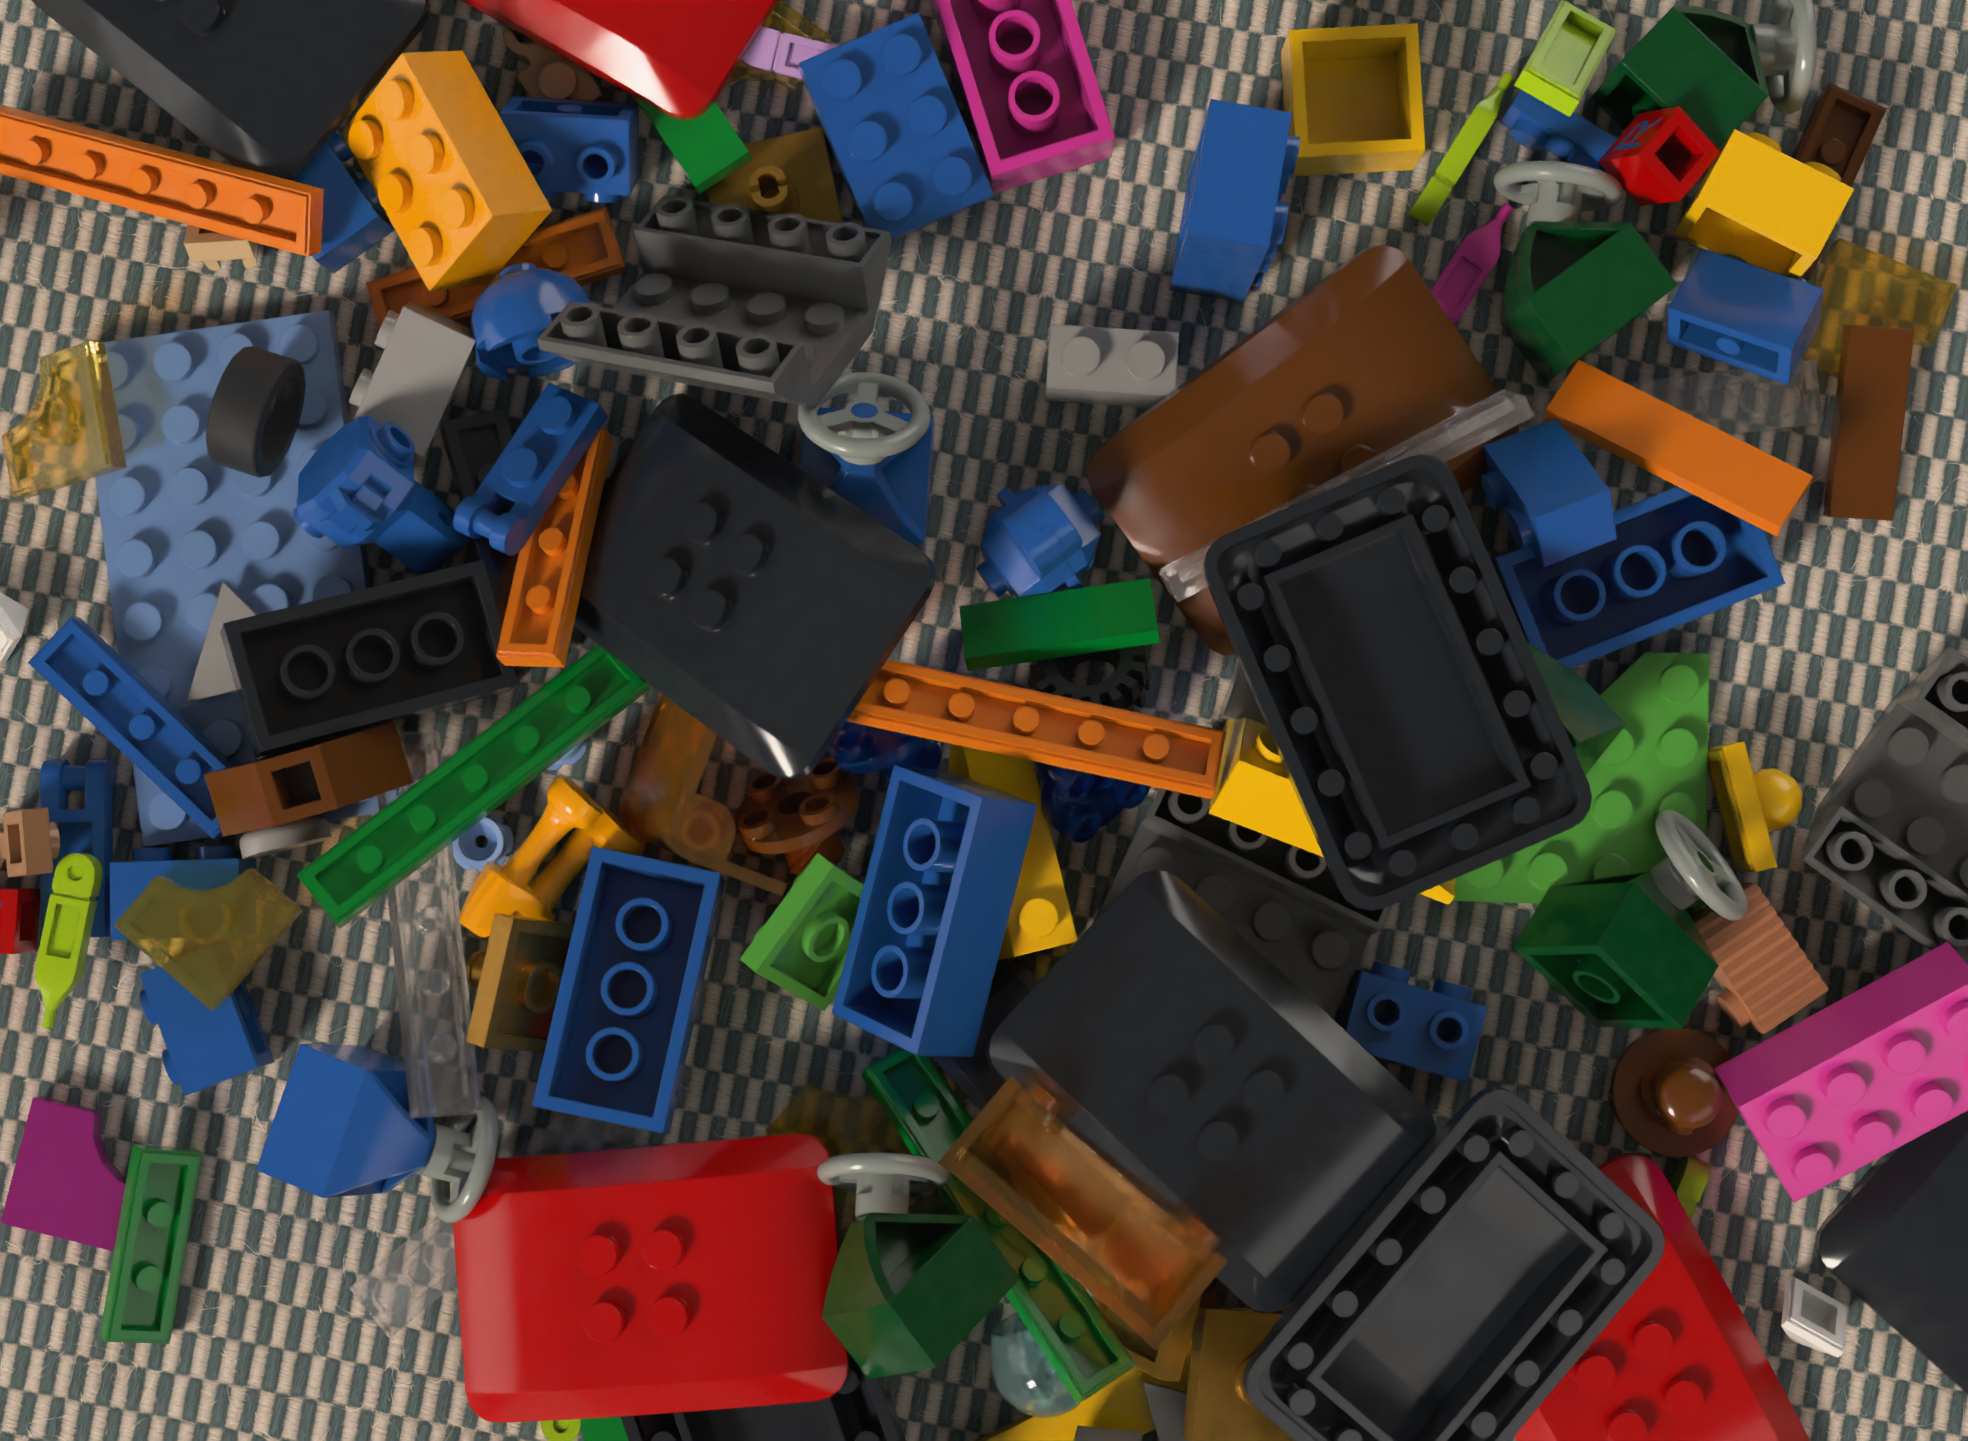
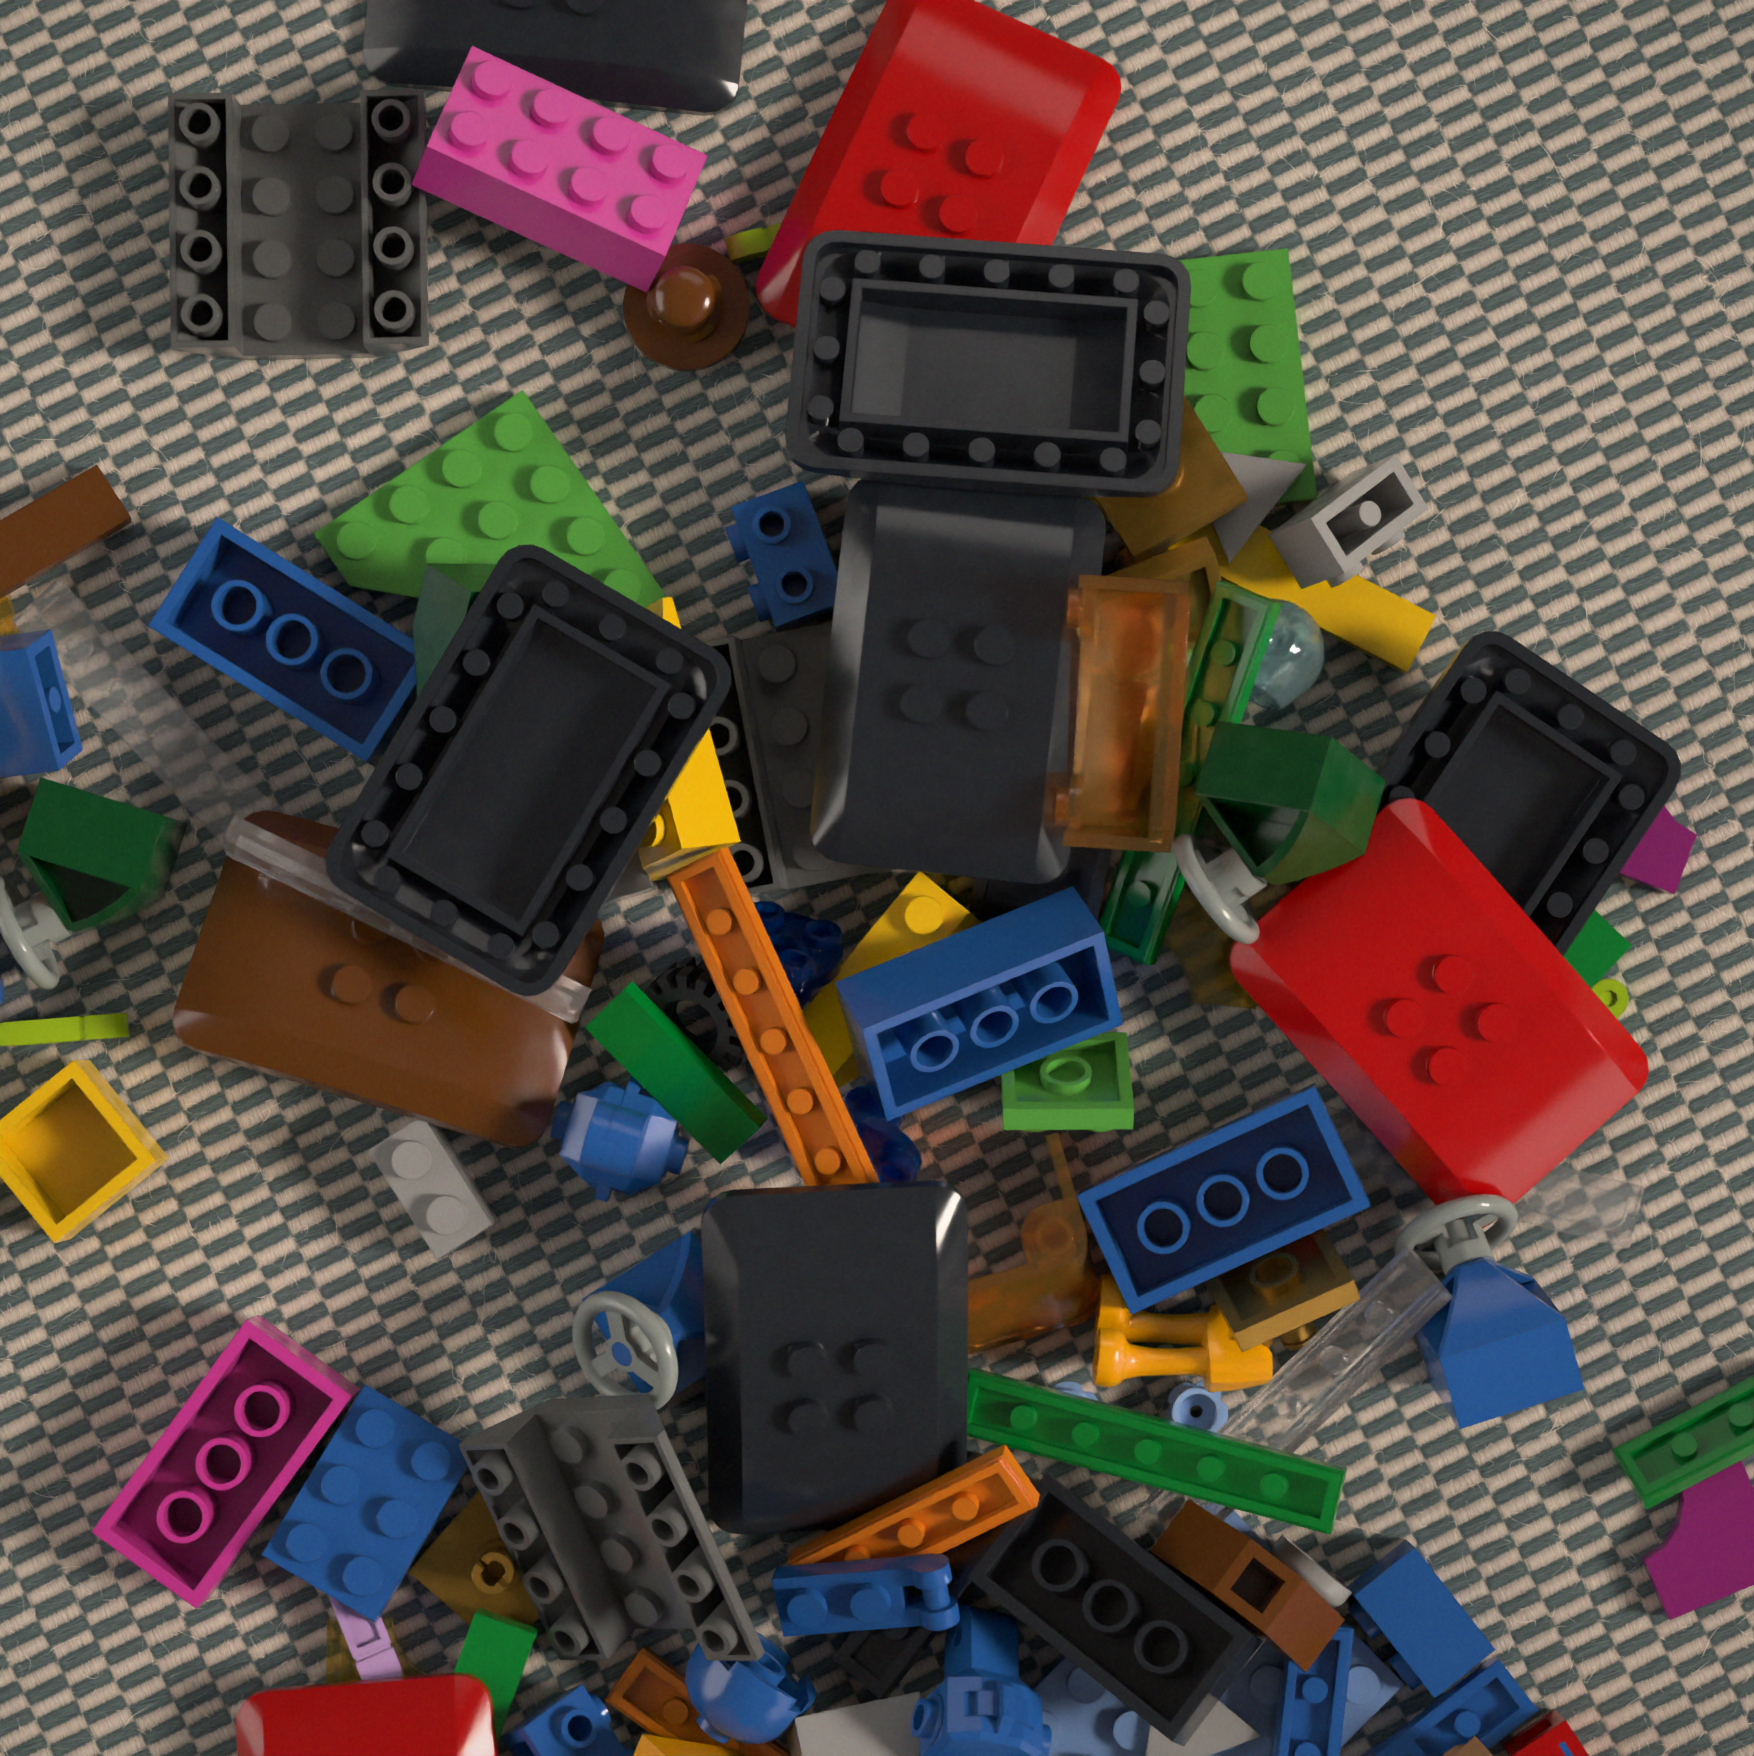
camera: 130 degrees left, 0 degrees up
(67, 930) = (1514, 1692): lime piece -> none
(203, 1043) = (1504, 1527): blue brick -> none
(209, 935) = (1433, 1572): clear yellow tile -> none
(799, 814) = (985, 1168): reddish brown plate -> none
(1233, 201) = (235, 1184): blue brick -> none
(1470, 266) = (138, 954): dark pink piece -> none
(1548, 493) = (283, 758): blue brick -> none
(1627, 942) = (597, 434): dark green piece -> none
(1679, 448) = (169, 681): orange tile -> none
(1751, 805) = (411, 412): yellow tile -> none
(1759, 964) = (536, 325): nougat brick -> none
(1813, 1318) = (786, 71): white slope -> none

